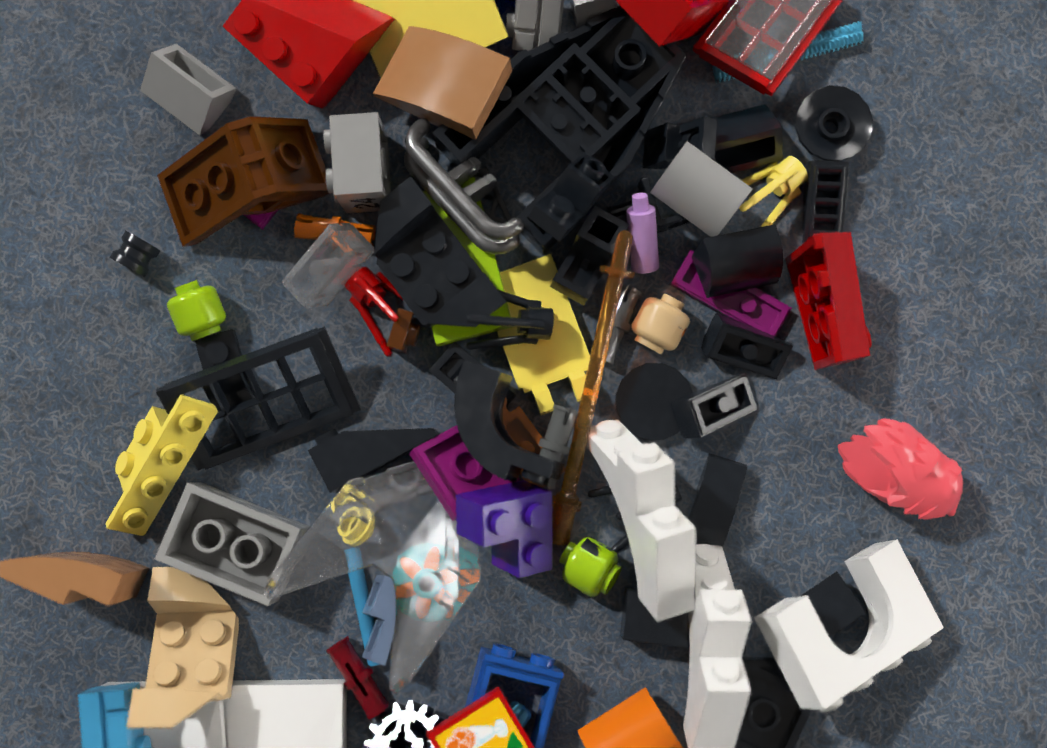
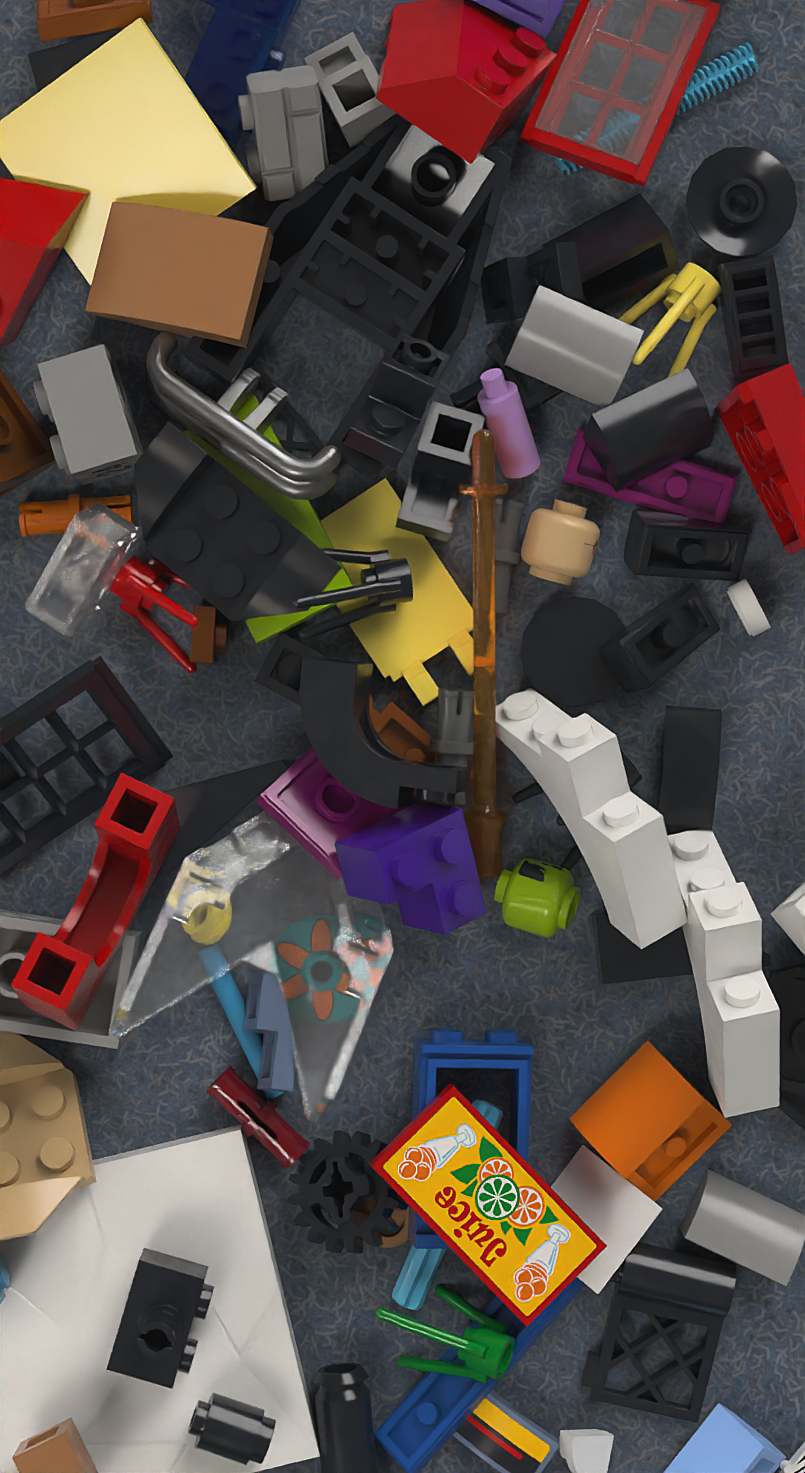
camera: 10 degrees left, 5 degrees up
(314, 459) = (67, 969): none -> red arch
(781, 398) = (748, 608): none -> white tile

